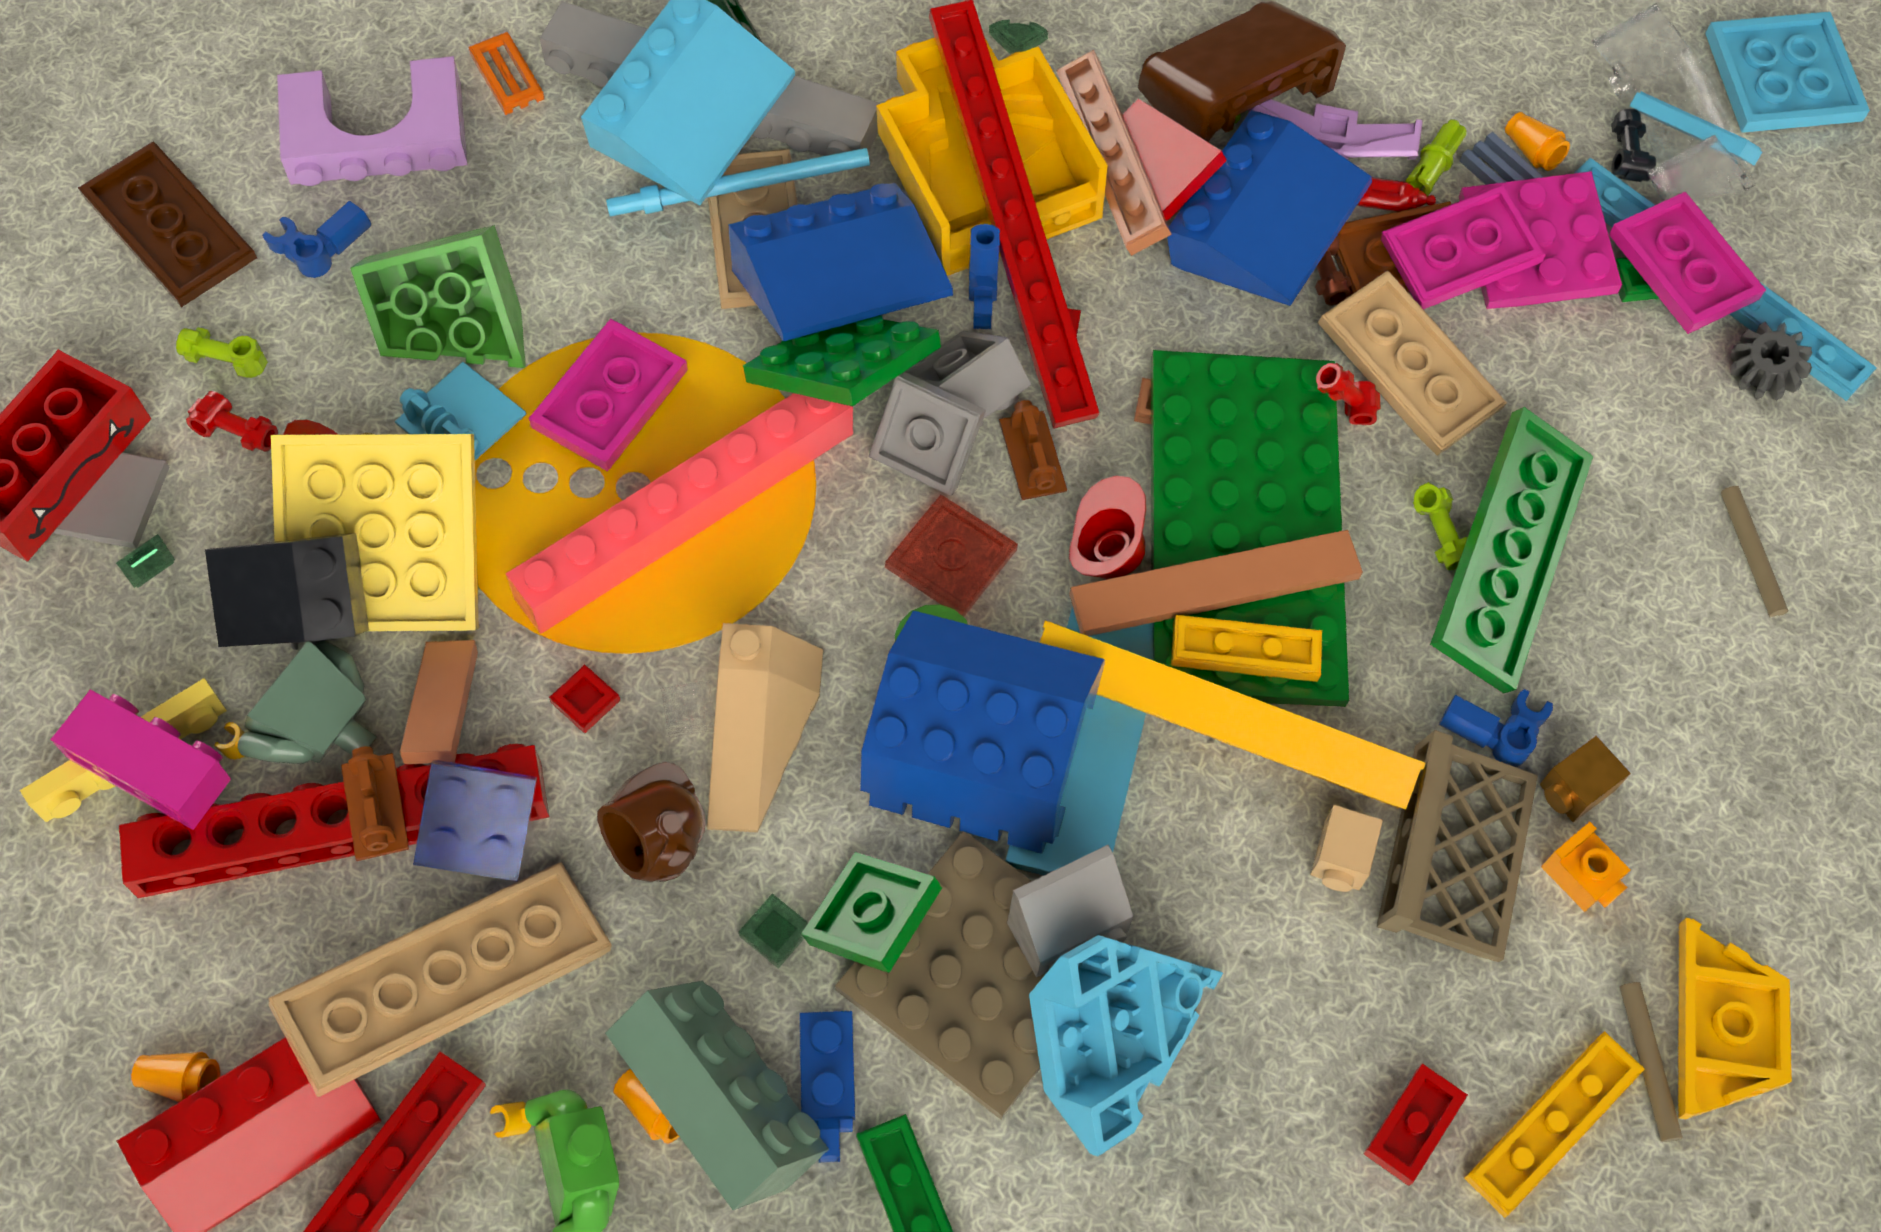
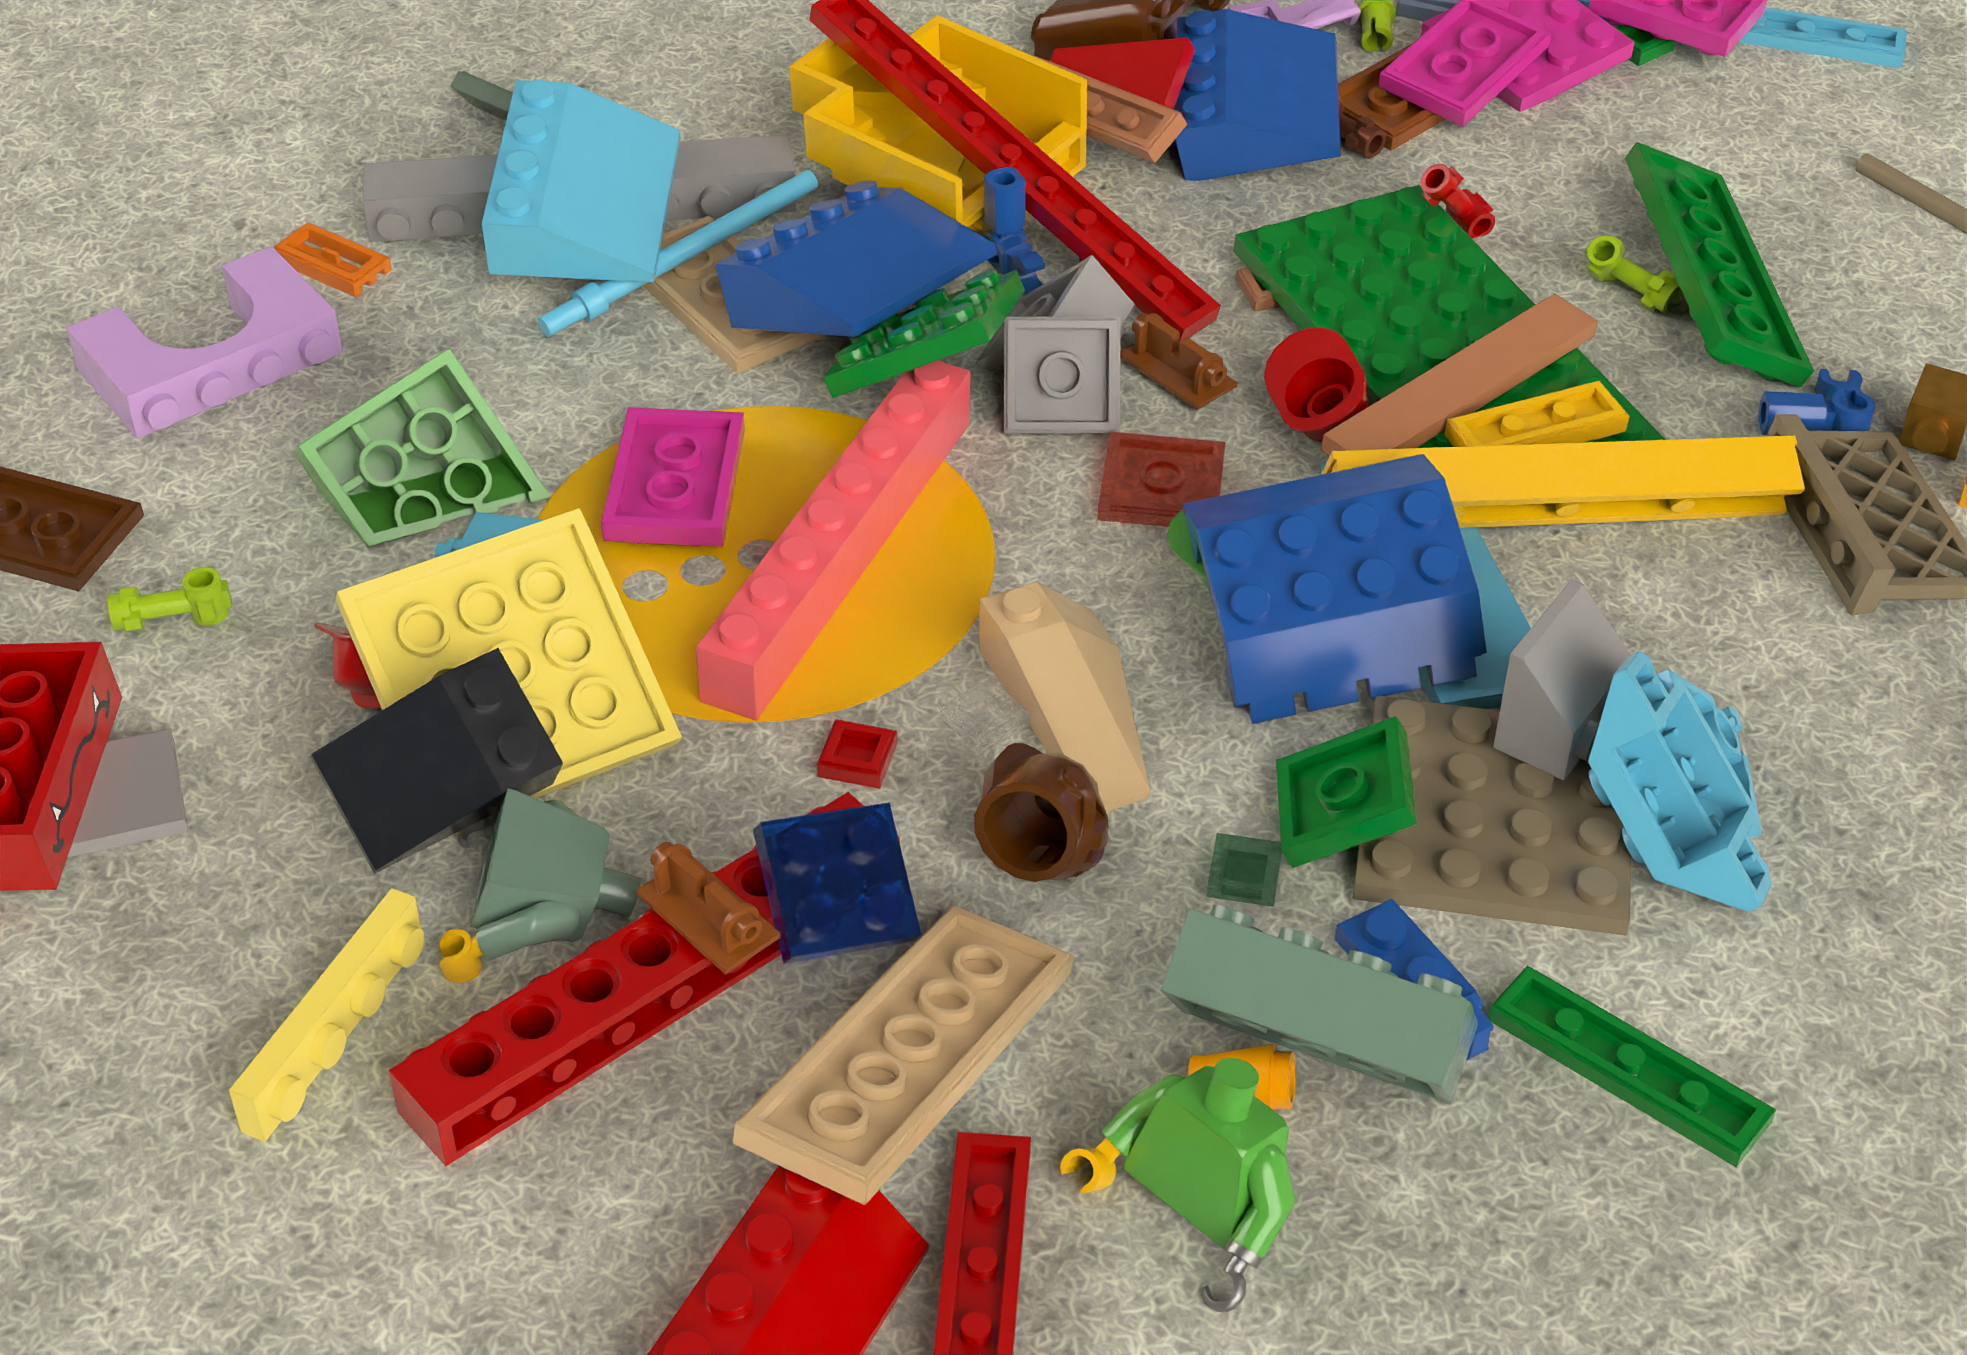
camera: 25 degrees left, 20 degrees down
(142, 757) = (381, 977): dark pink brick -> none
(145, 561) = (215, 829): clear green slope -> none
(174, 1074) = (636, 1307): light orange cone -> none
(214, 412) = (200, 662): red bar -> none
(314, 253) = (214, 480): blue bar -> none
(439, 702) = (697, 806): nougat tile -> none
(1346, 849) = (1771, 551): tan brick -> none
(1394, 196) = (1364, 53): red piece -> none
(1412, 363) = (1502, 167): tan tile -> none
(1776, 349) = (1815, 50): dark grey gear -> none

